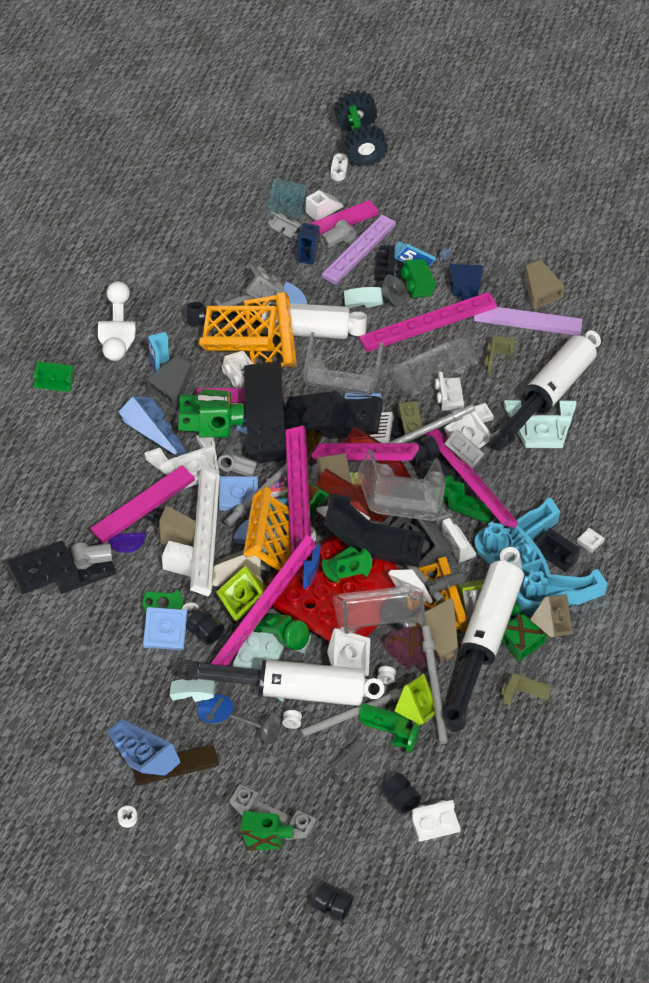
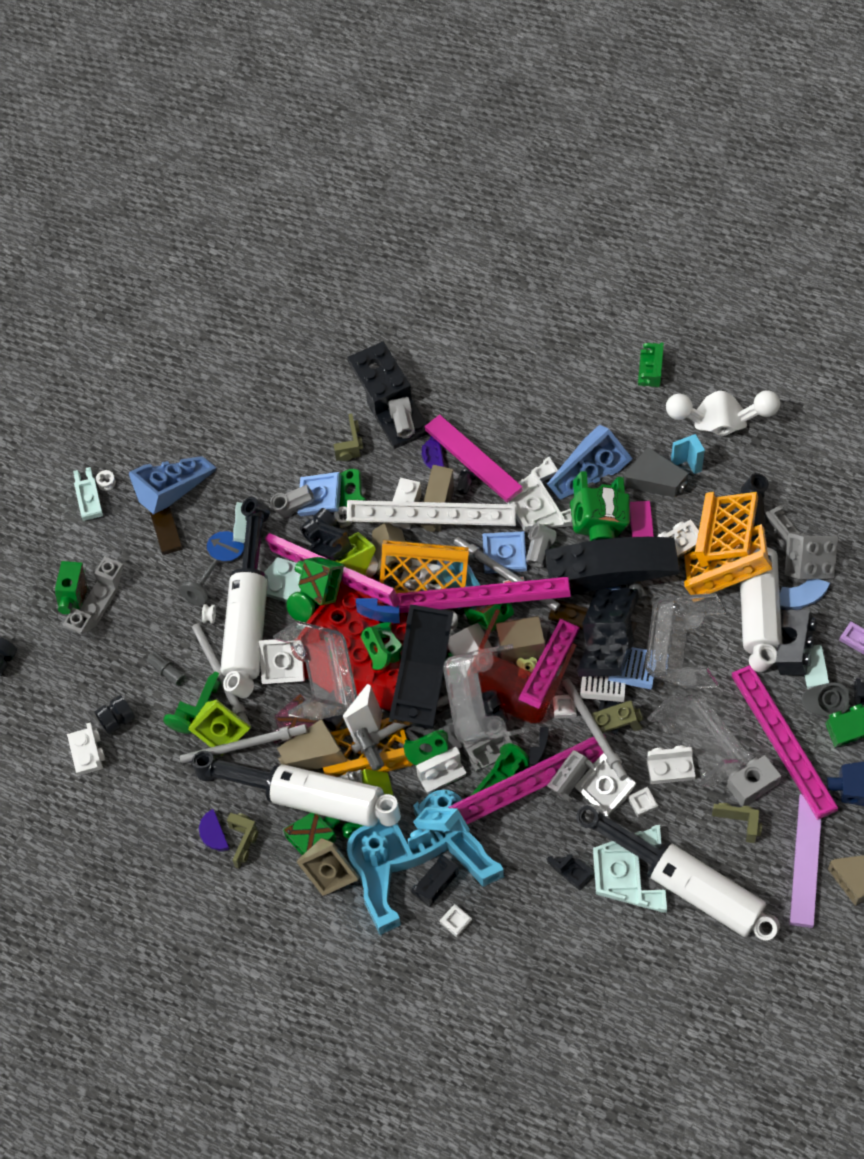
camera: 95 degrees right, 10 degrees up
(108, 598) = (347, 450): none -> olive bracket
(143, 831) = (87, 496): none -> light aqua hinge
(174, 644) = (293, 501): none -> light grey piece
(233, 606) = (331, 542): none -> black hinge
(278, 605) = (320, 578): none -> green torso
(359, 300) = (796, 656): none -> black arch
(386, 675) = (261, 700): white bush -> none
(427, 451) = (568, 729): black wheel -> none
(442, 529) = (416, 755): none -> green piece
(462, 330) = (748, 791): none -> light grey brick
(516, 527) = (441, 819): none -> medium azure panel
(516, 716) = (211, 832): none -> dark purple tile
(543, 460) = (572, 870): none -> black slope

